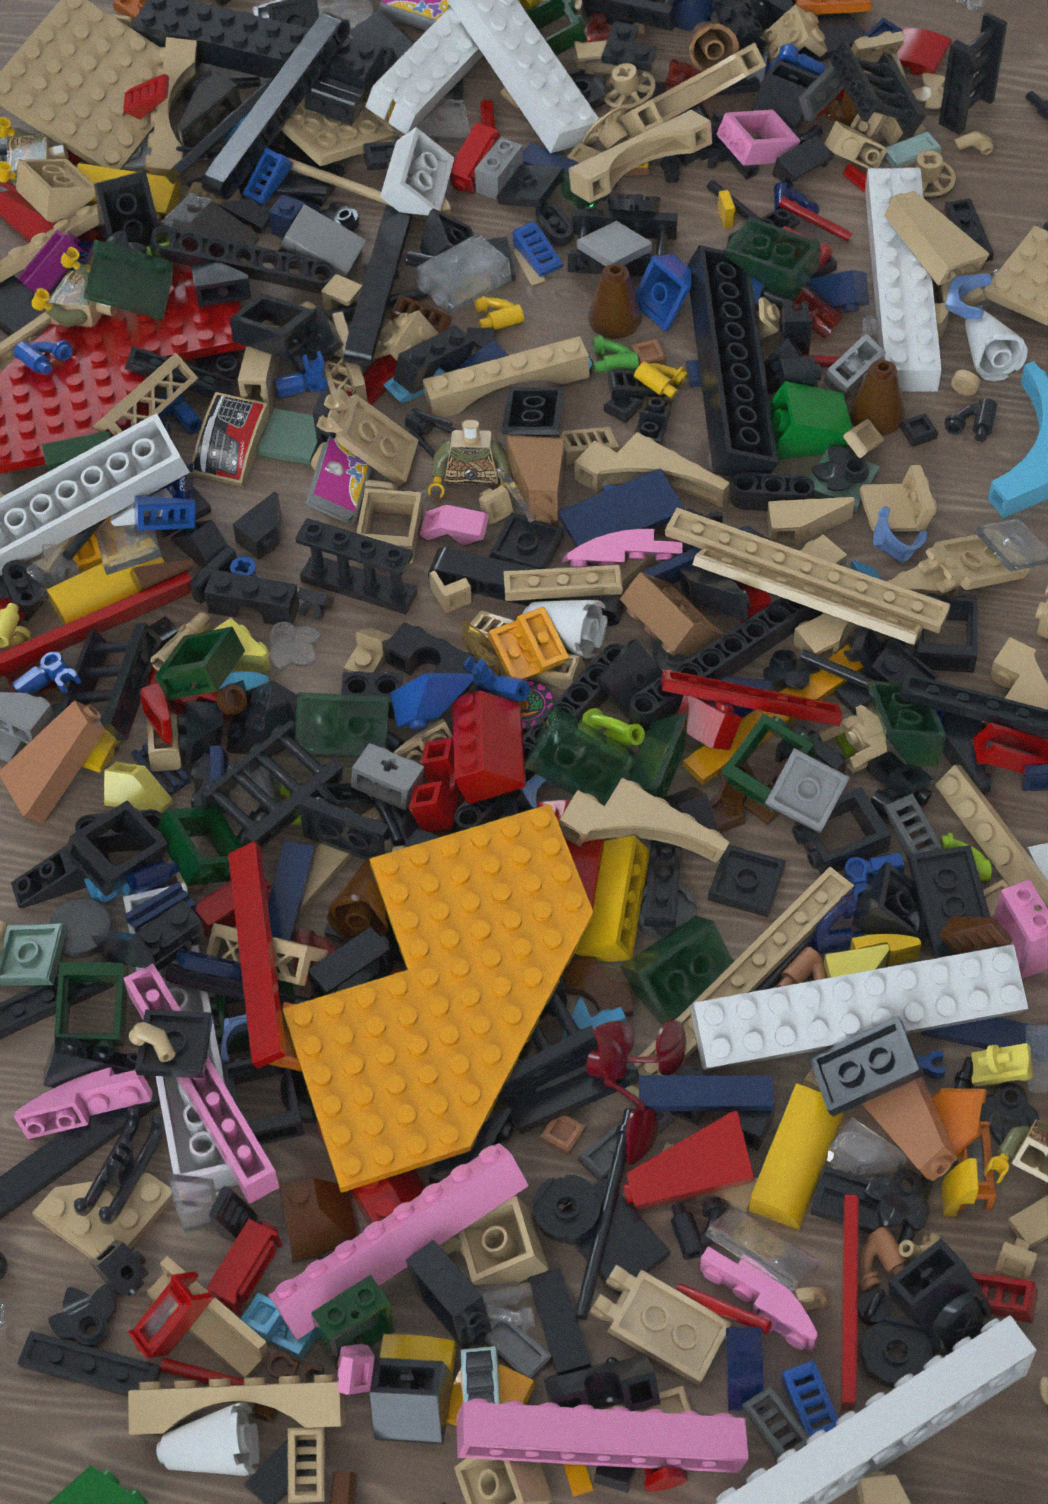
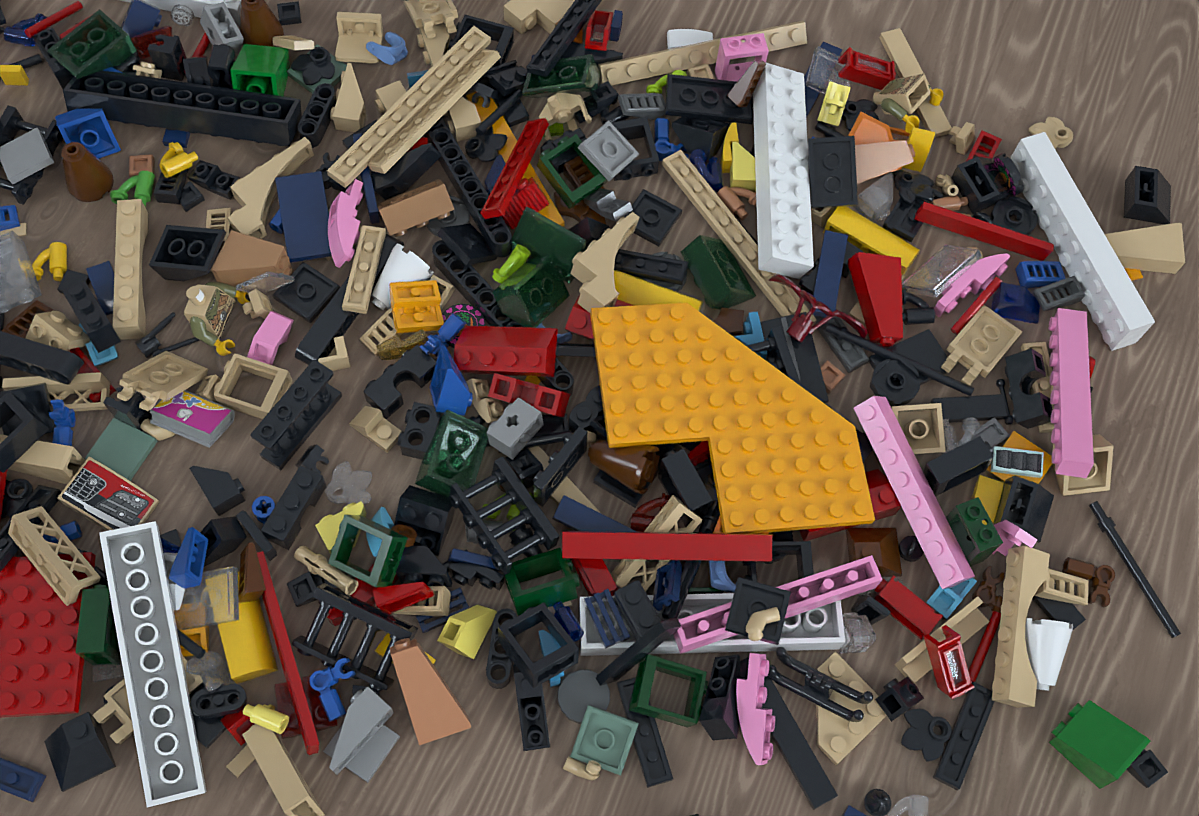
camera: 85 degrees left, 10 degrees up
(739, 818) = (606, 204): none -> flat silver slope

